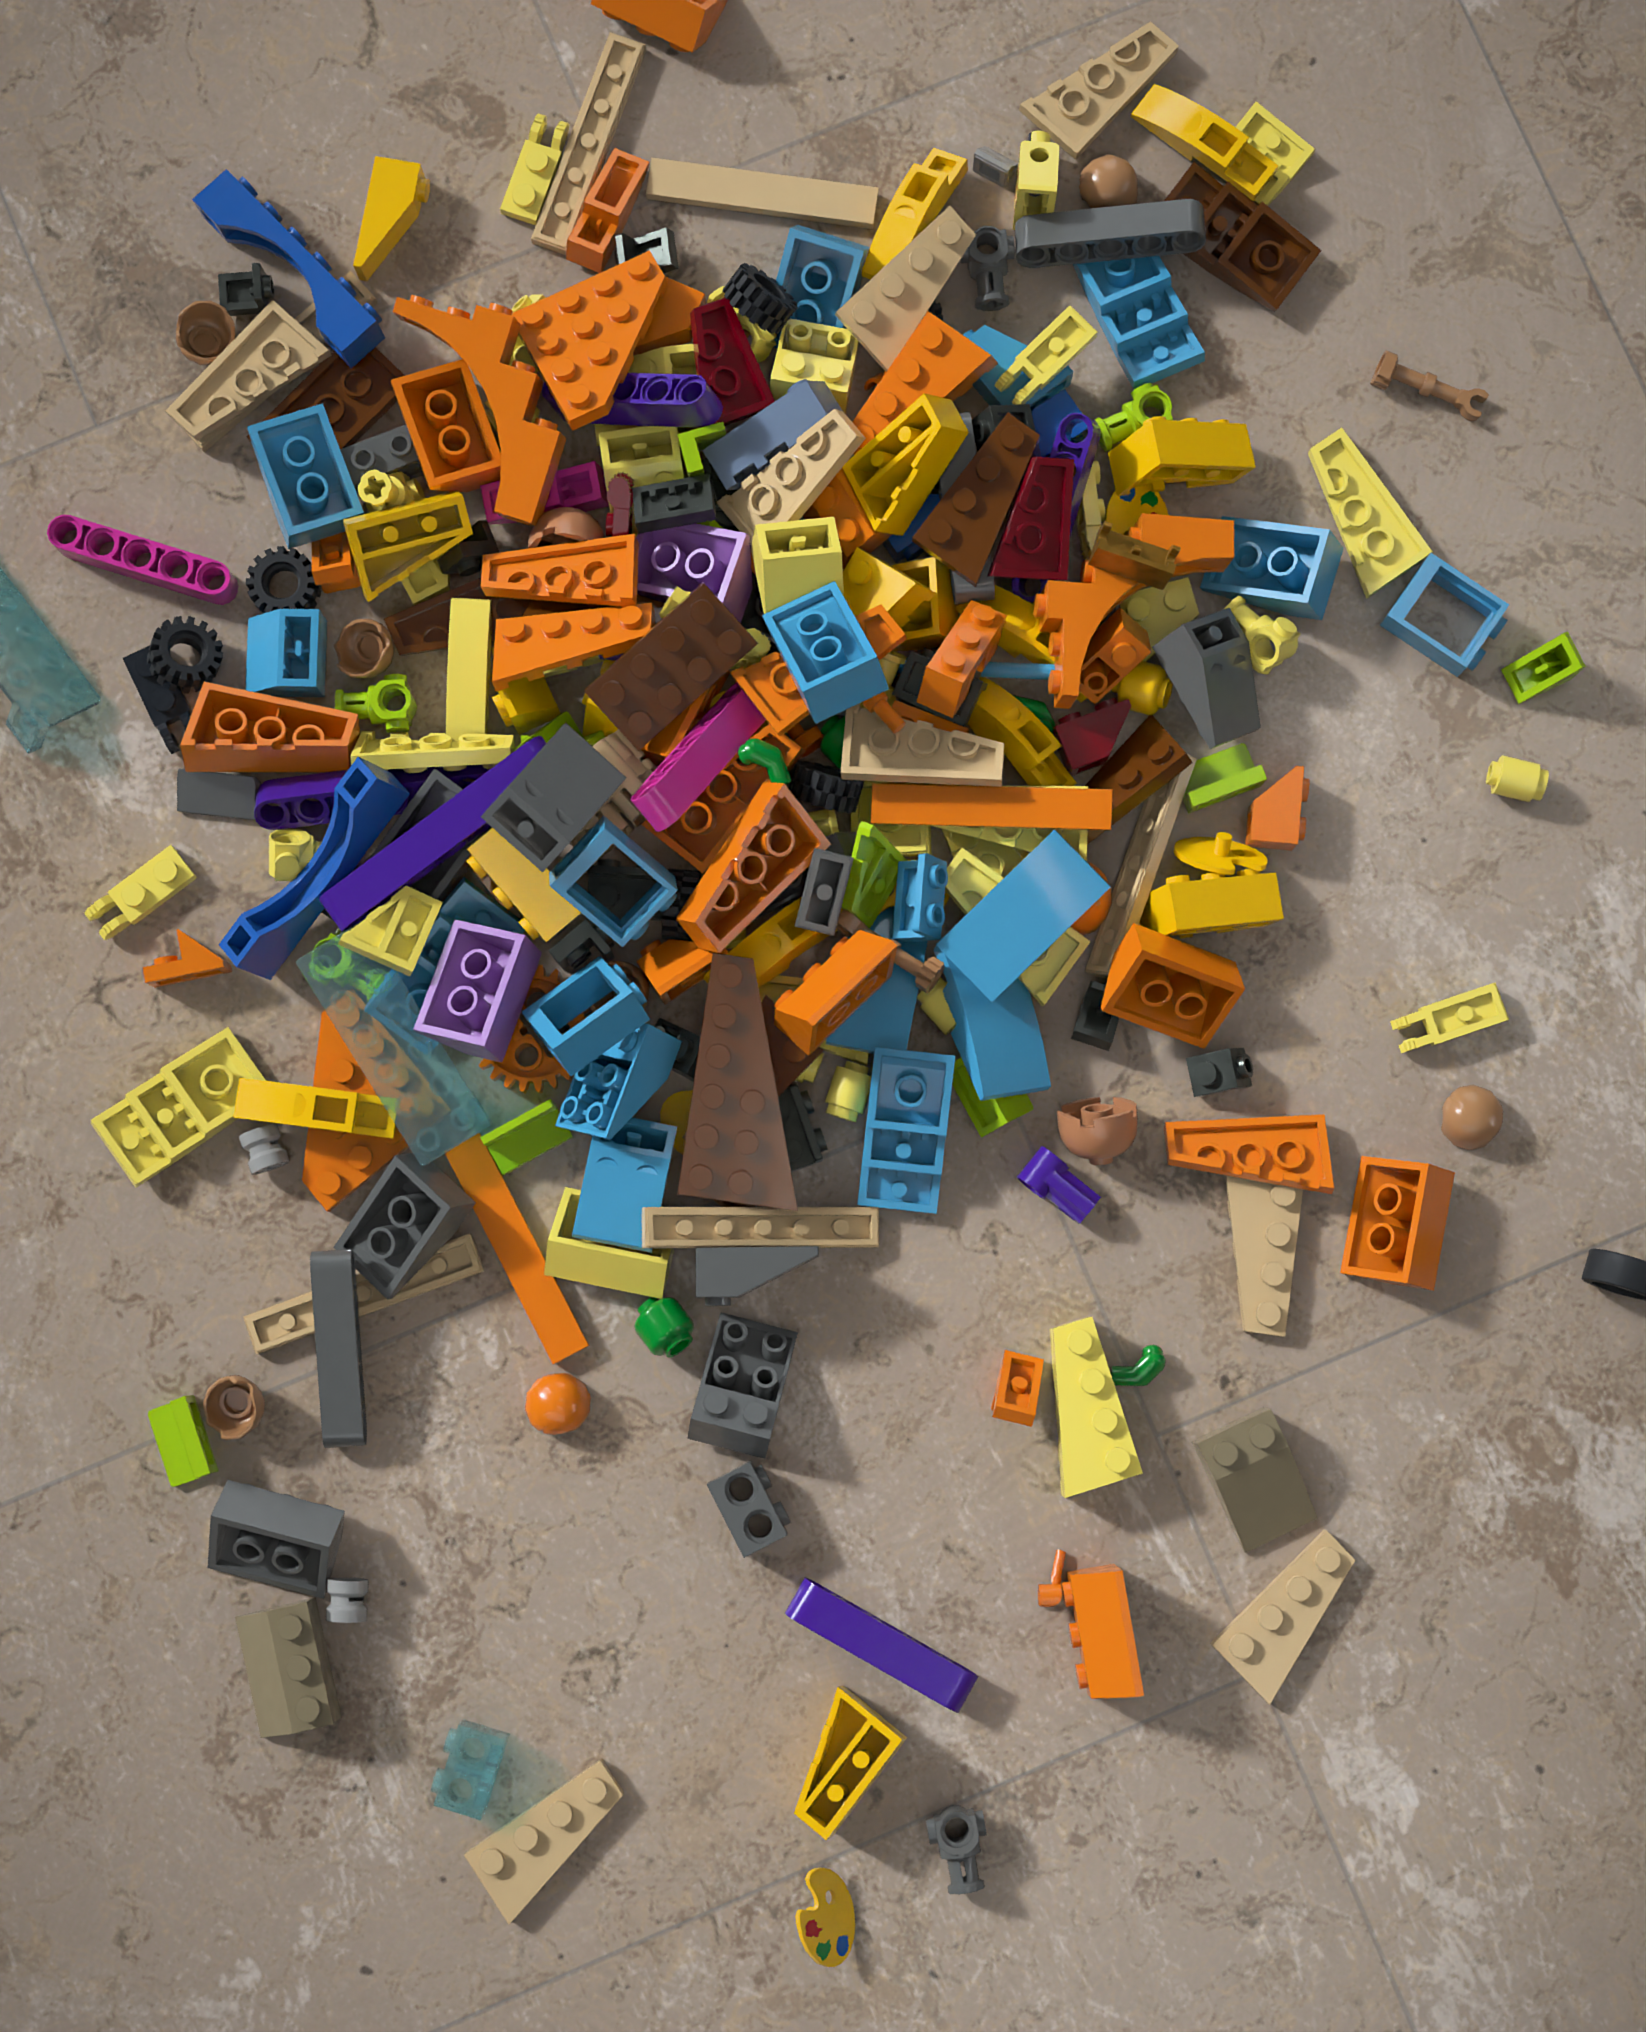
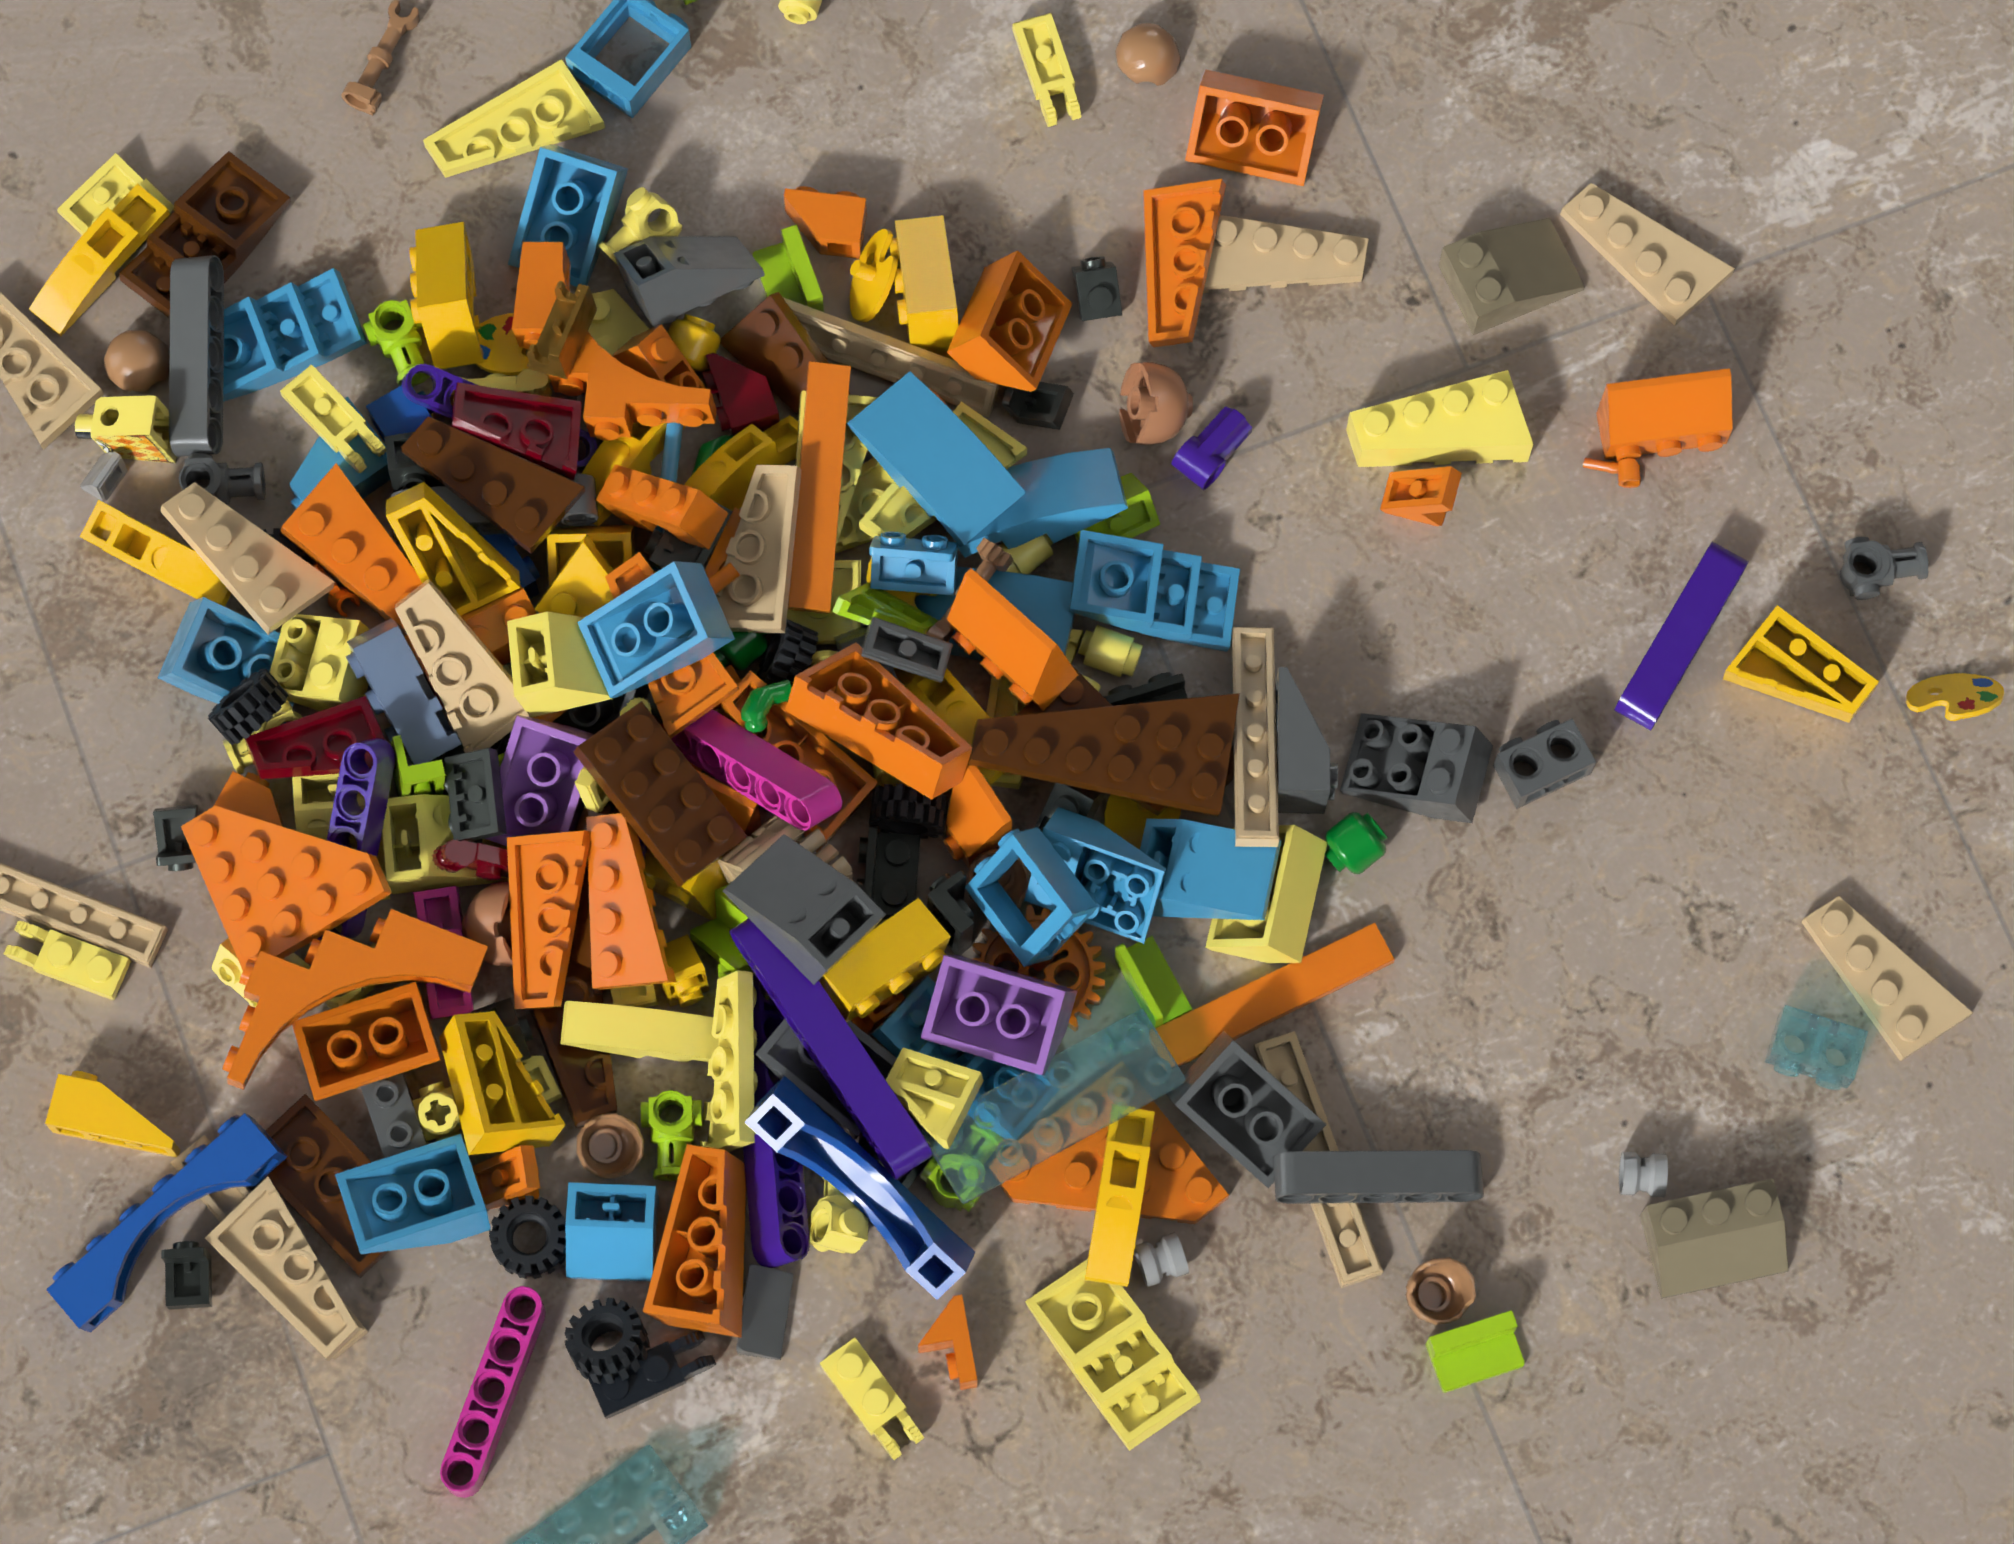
camera: 90 degrees left, 10 degrees down
(204, 331) = (234, 1319): medium nougat hair -> none
(274, 1538) = (1580, 1248): dark grey slope -> none
(557, 1403) = (1435, 957): orange hair -> none
(584, 854) = (928, 844): dark azure window -> none
(606, 210) = (123, 880): orange slope -> none
(762, 193) = (114, 719): tan tile -> none
(1143, 1371) = (1401, 372): green arm -> none

